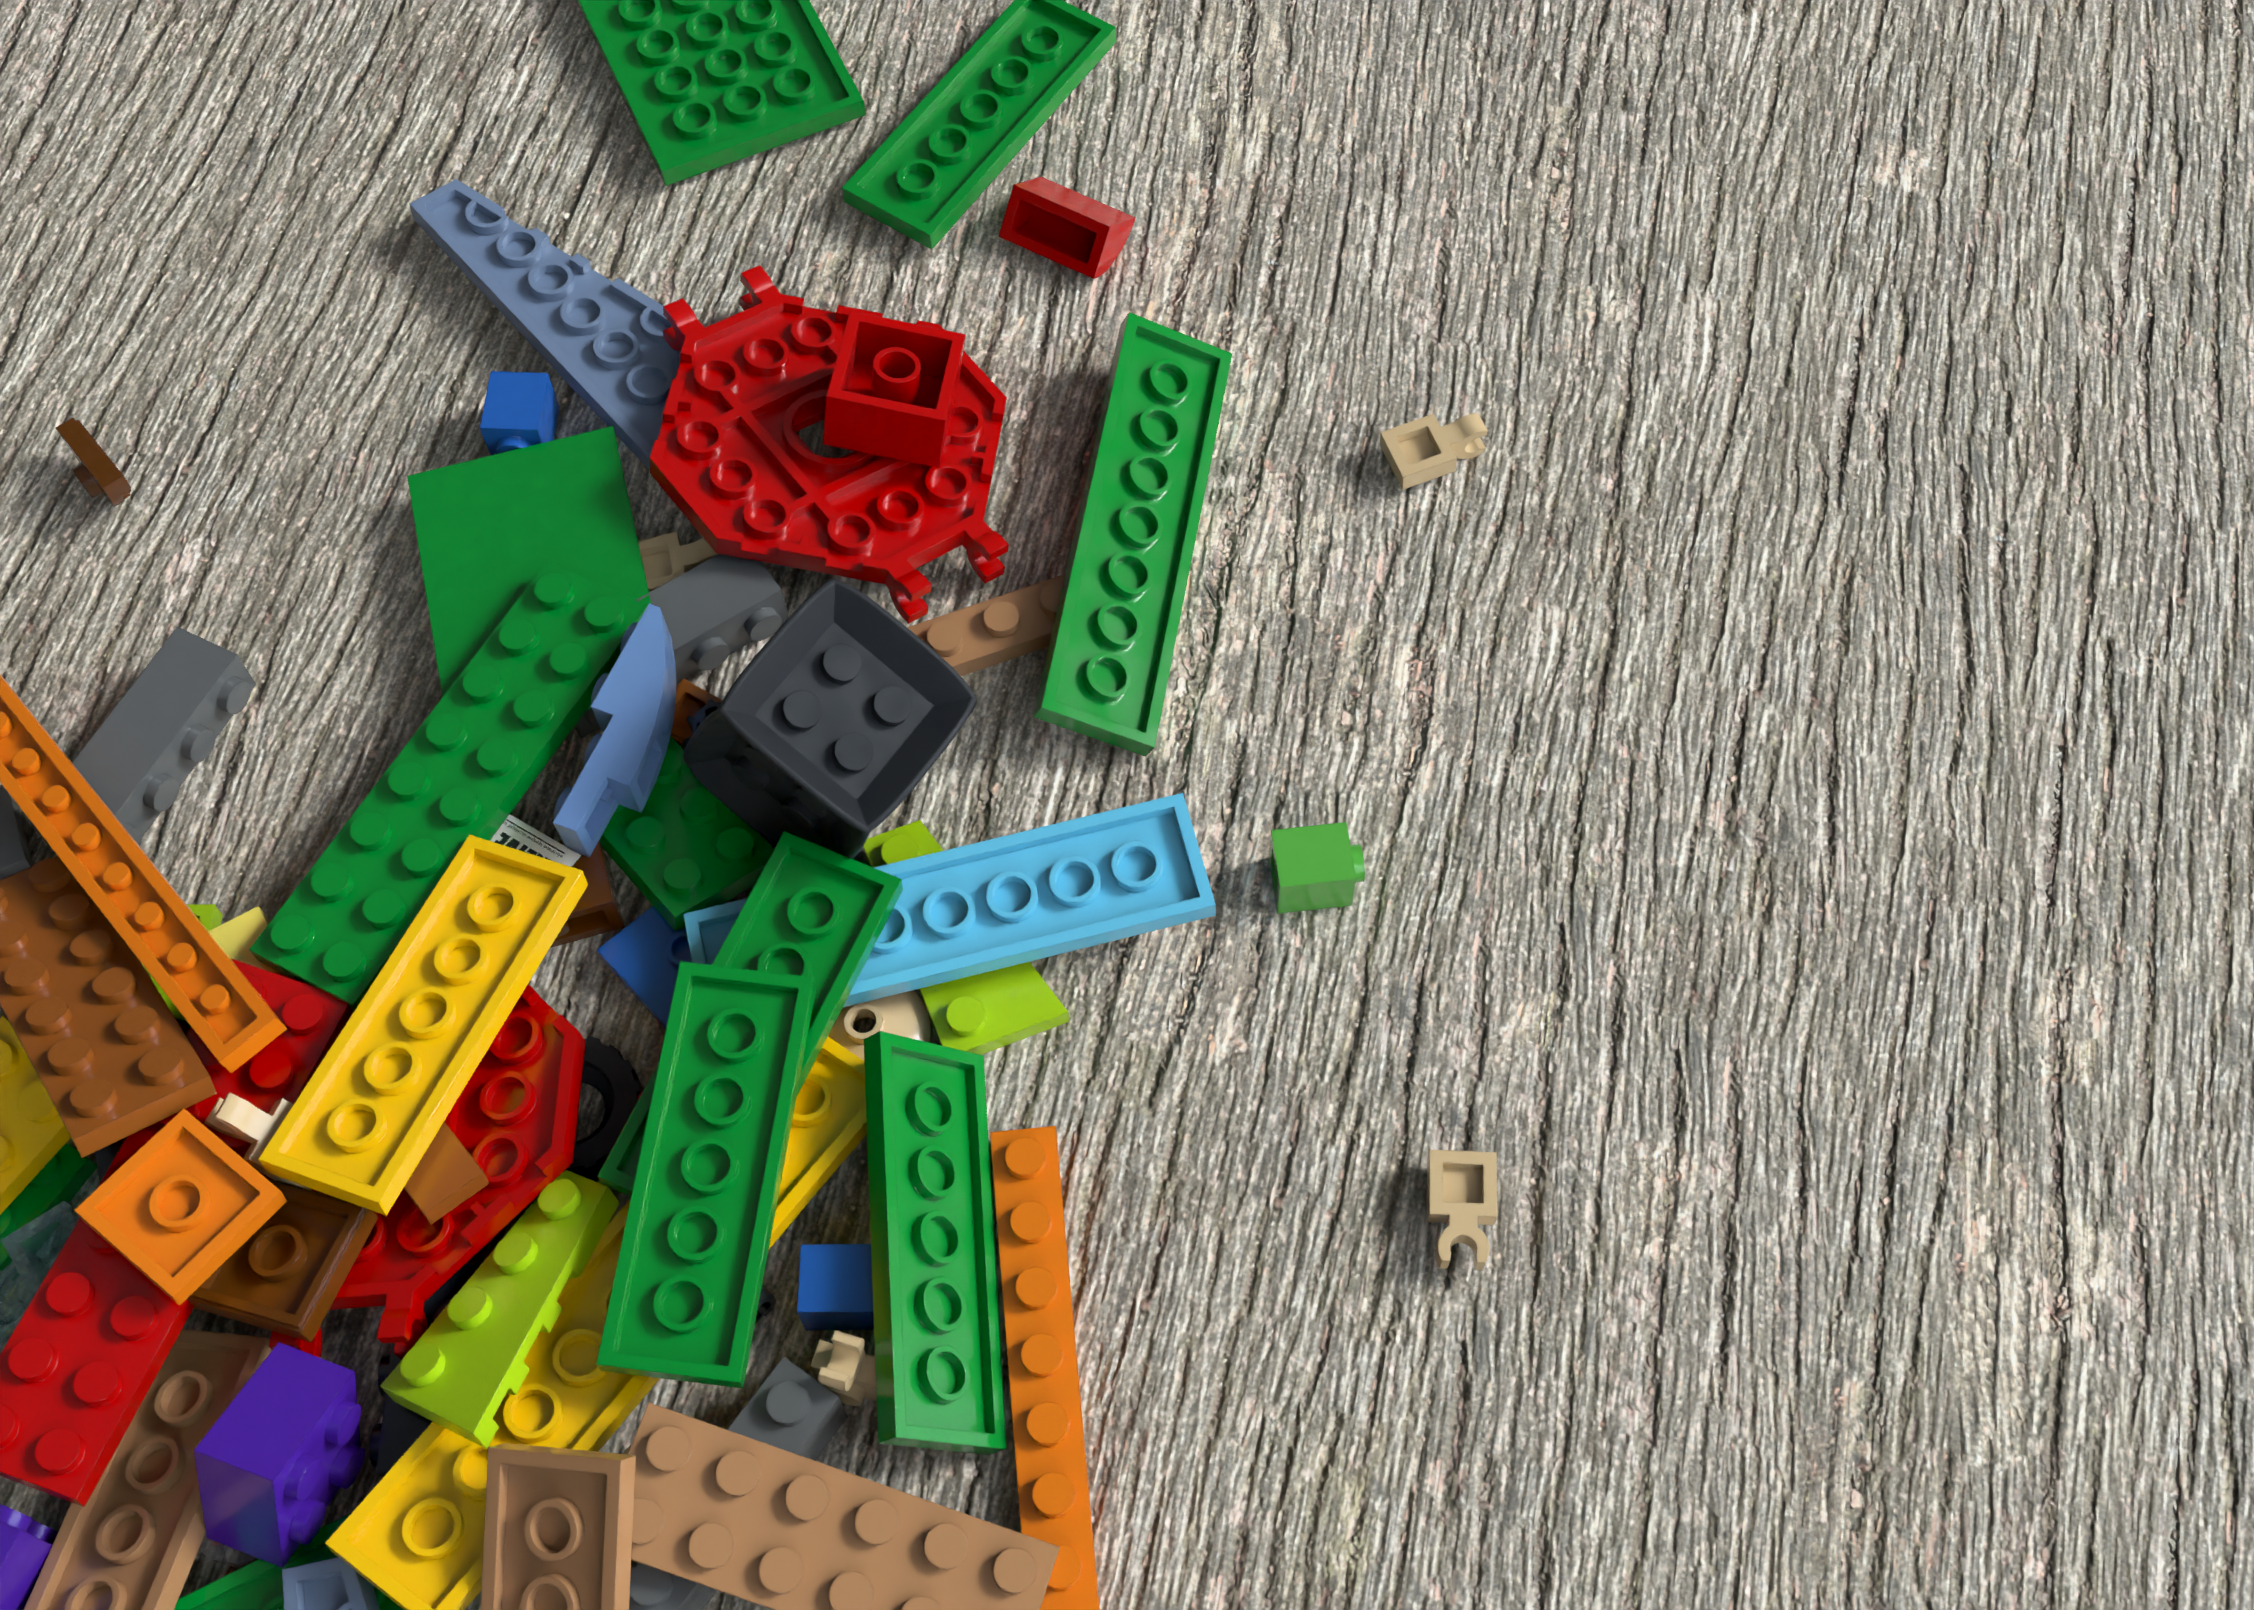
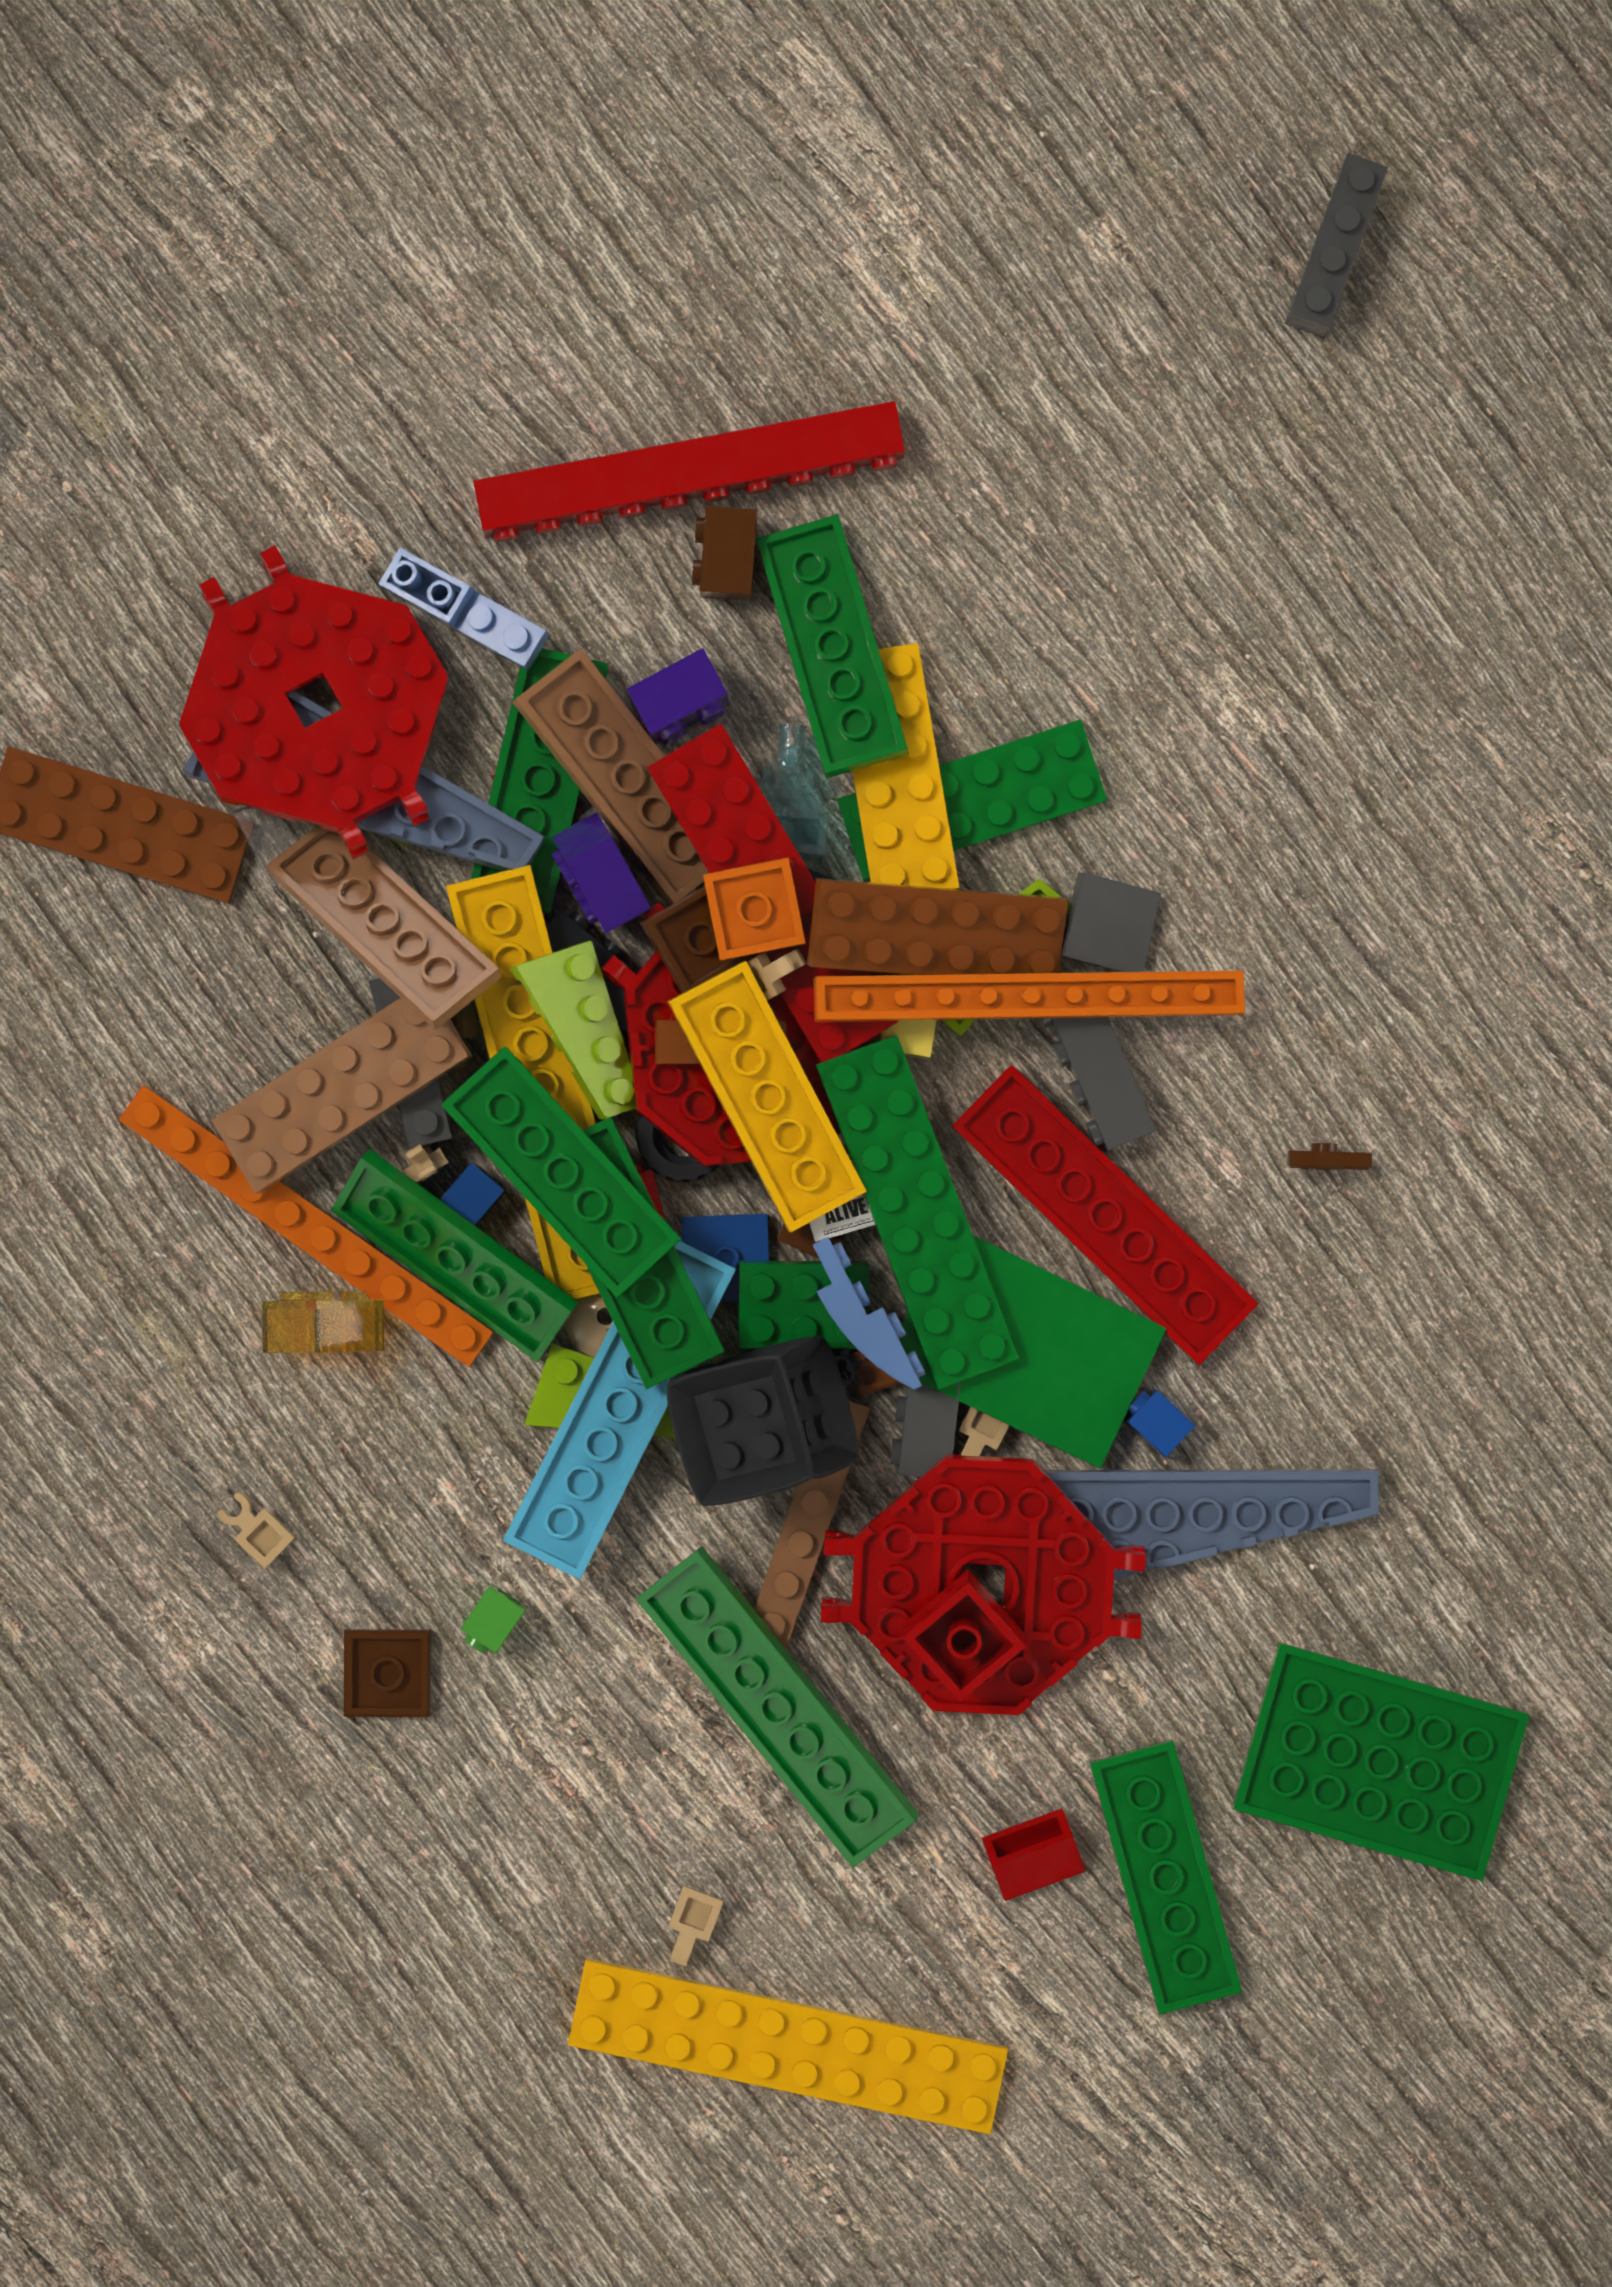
camera: 130 degrees right, 25 degrees up
(322, 635) = (1104, 1215): none -> red plate
(1157, 1324) = (322, 1323): none -> clear yellow brick
(1467, 302) = (788, 2046): none -> yellow plate
(1477, 936) = (387, 1672): none -> reddish brown tile

